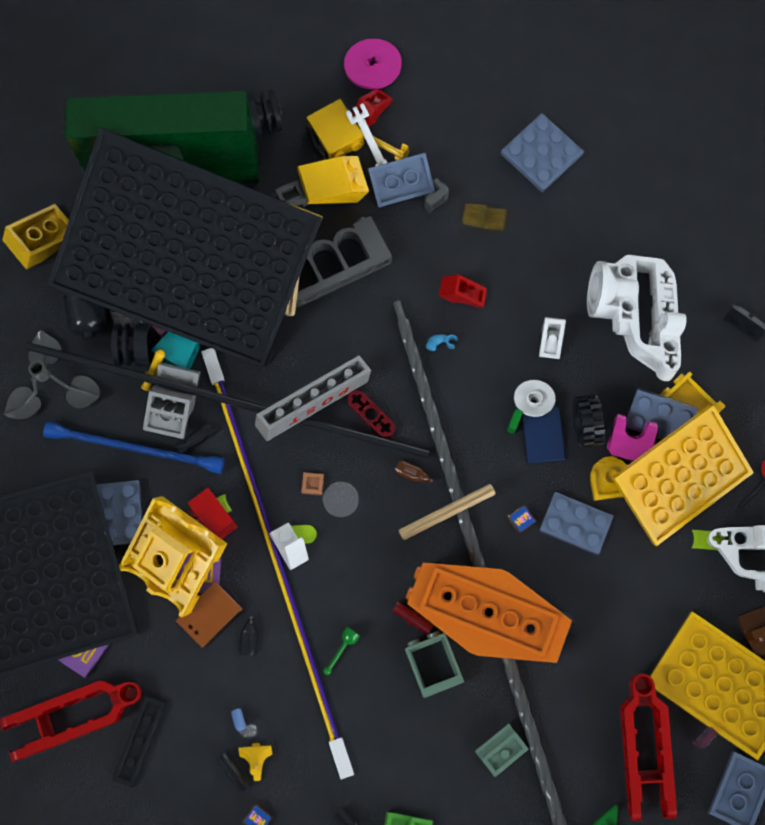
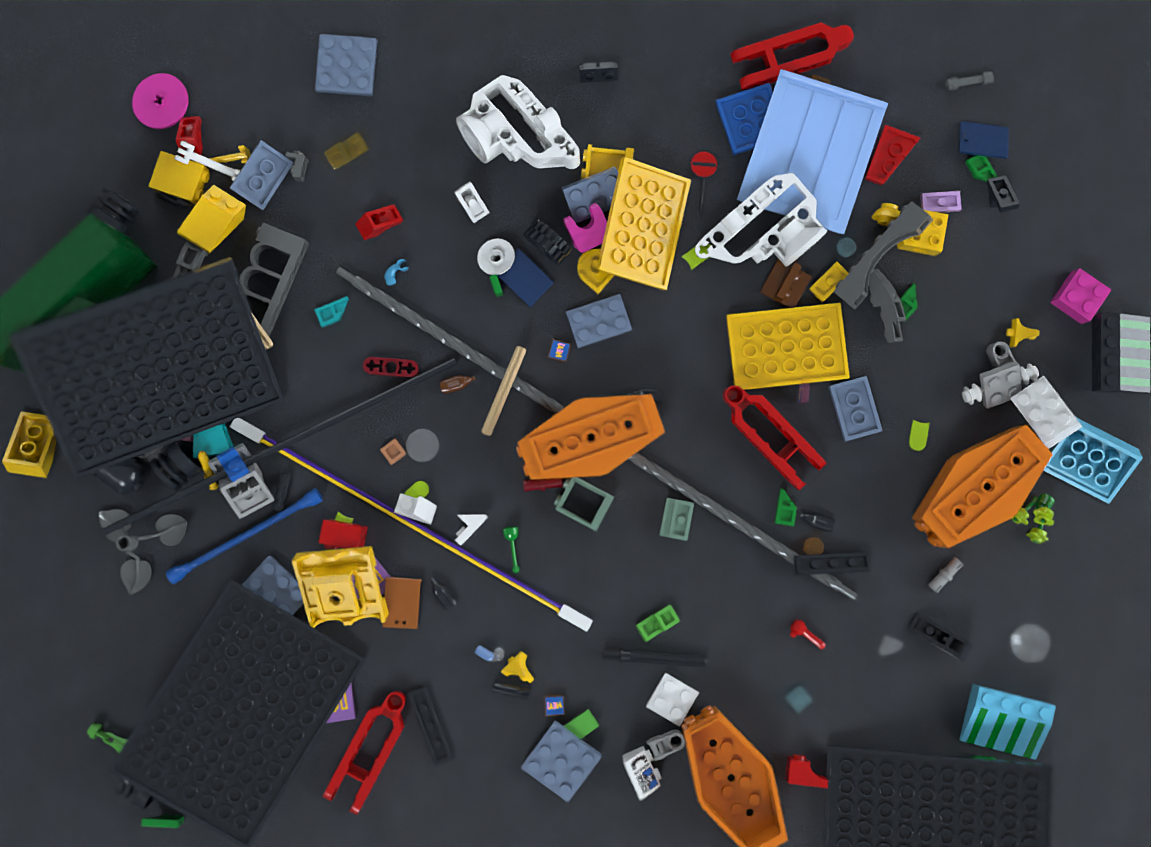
camera: 45 degrees left, 10 degrees up
(177, 380) = (233, 464): none -> blue bracket
(312, 398) = (340, 392): light grey brick -> none
(326, 600) = (473, 523): none -> white slope
(362, 330) = (331, 312): none -> teal tile

